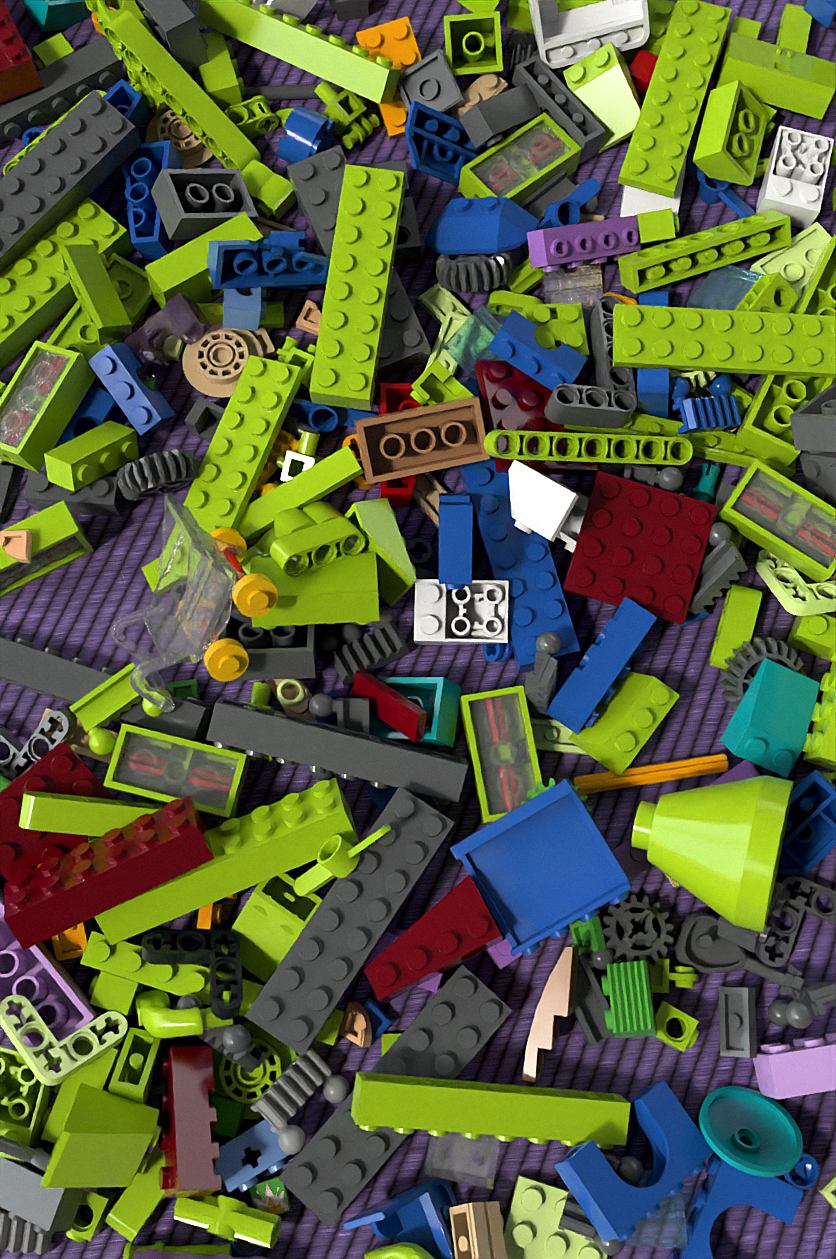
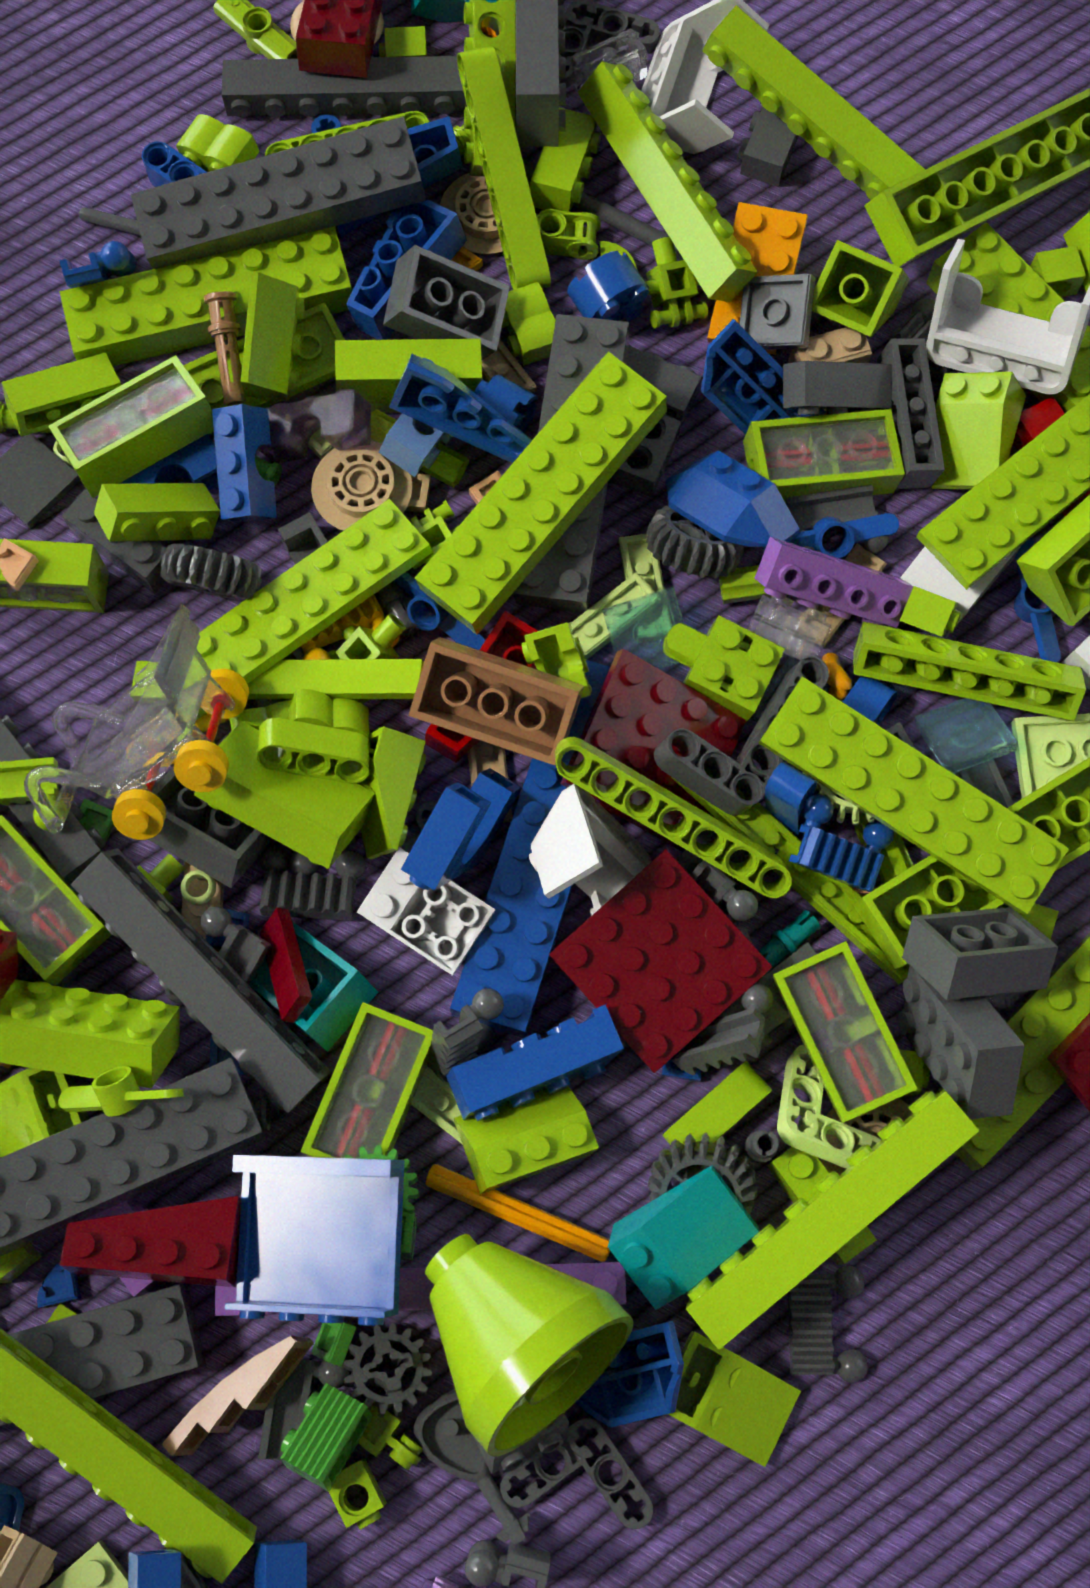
camera: 30 degrees right, 0 degrees up
(58, 306) = (227, 328): none -> medium nougat pin
(357, 1025) = (38, 1277): light nougat tile -> none
(463, 1159) = (50, 1488): clear brick -> none
(497, 652) = (443, 980): blue bush -> none
(503, 302) = (713, 603): lime beam -> none
(518, 347) = (672, 656): blue arch -> none
(737, 1022) = (428, 1535): dark grey plate -> none
(769, 294) = (985, 765): lime brick -> none
(783, 627) = (767, 1139): none -> dark grey pin

